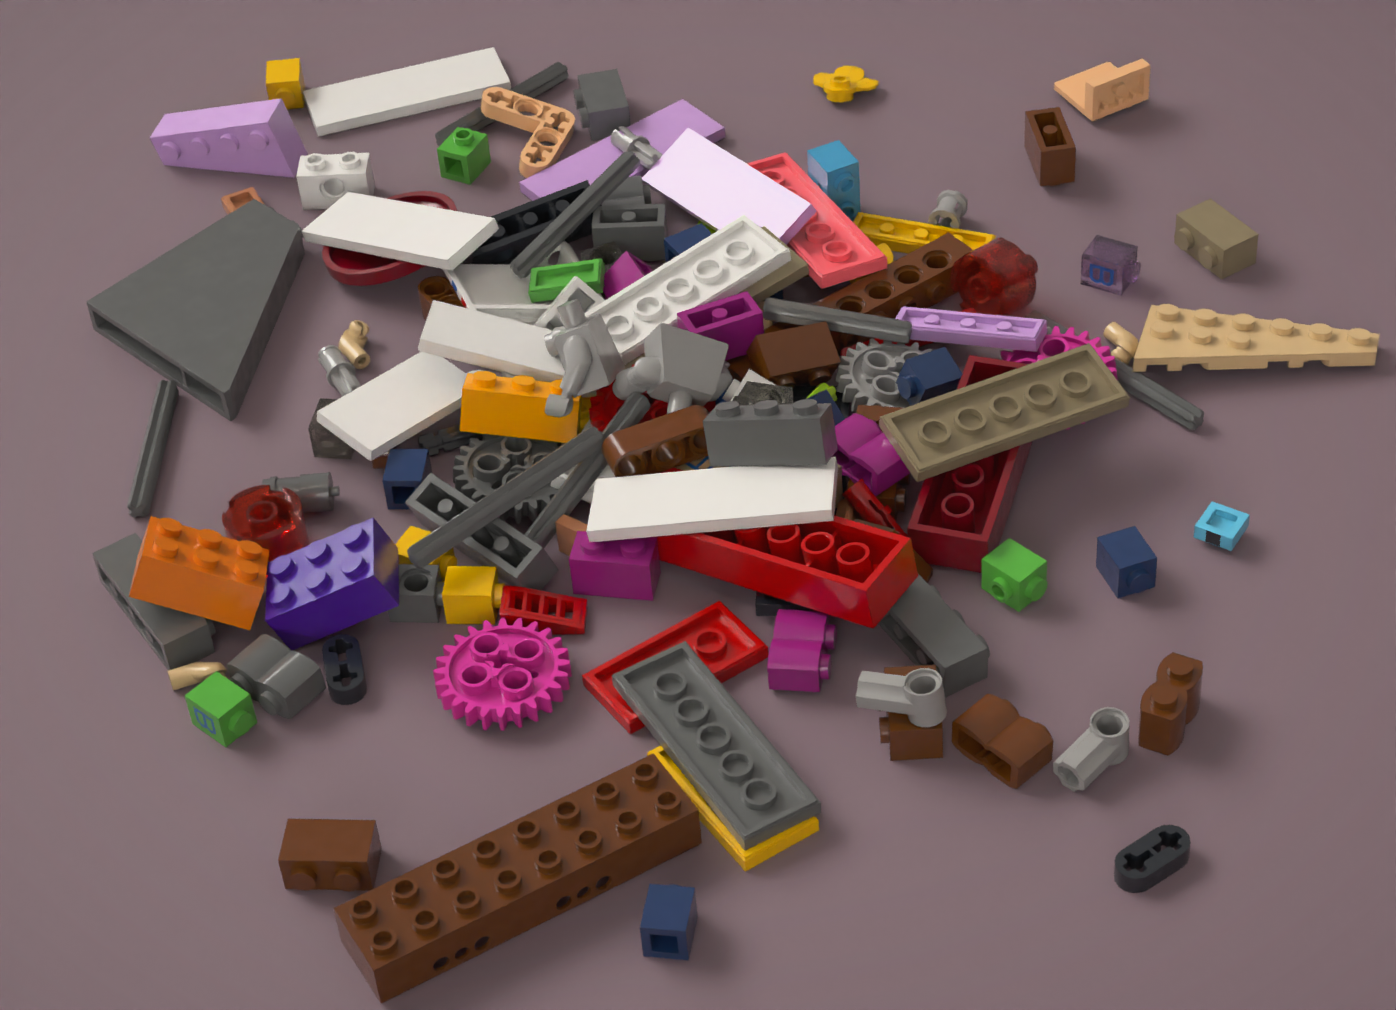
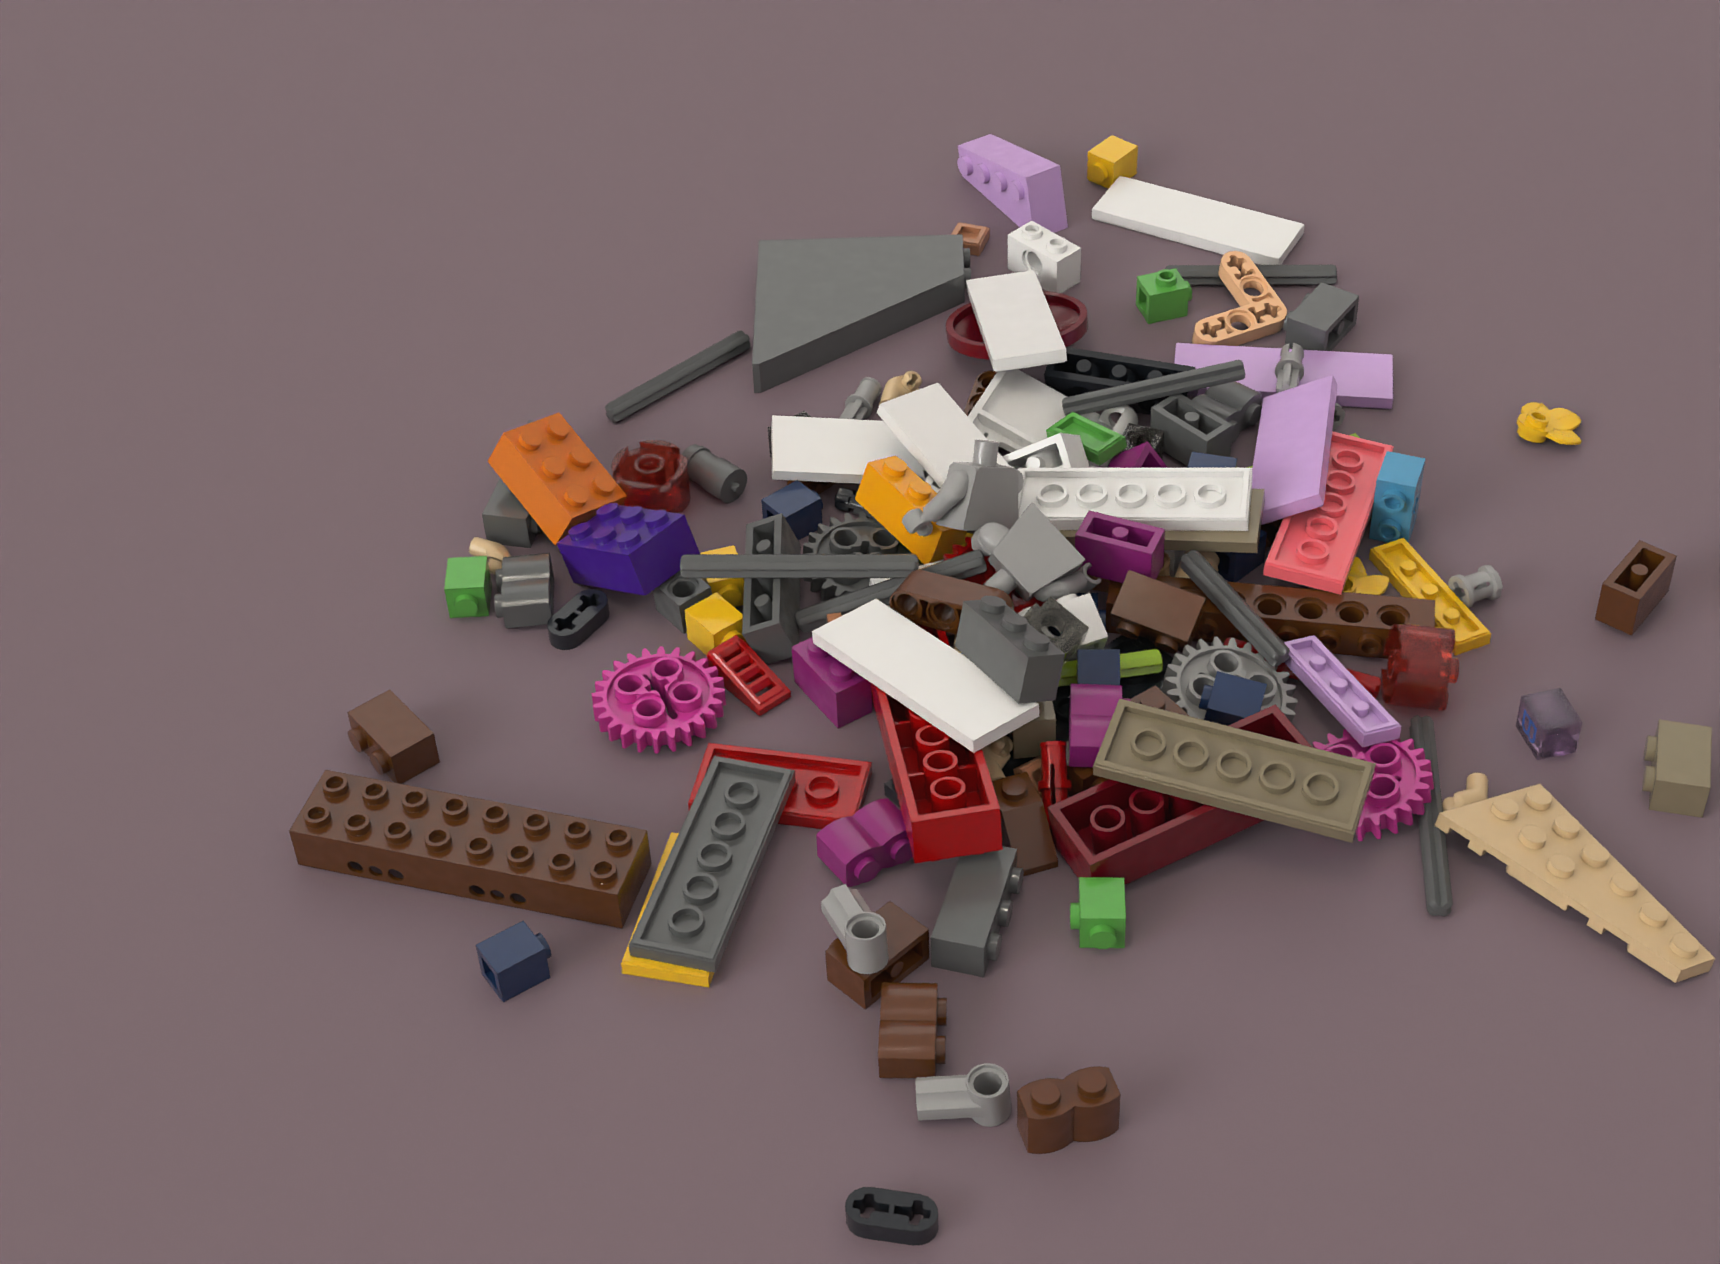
camera: 45 degrees right, 0 degrees up
(1126, 562) = (1202, 973): dark blue brick -> none
(1221, 526) = (1326, 1008): medium azure plate -> none

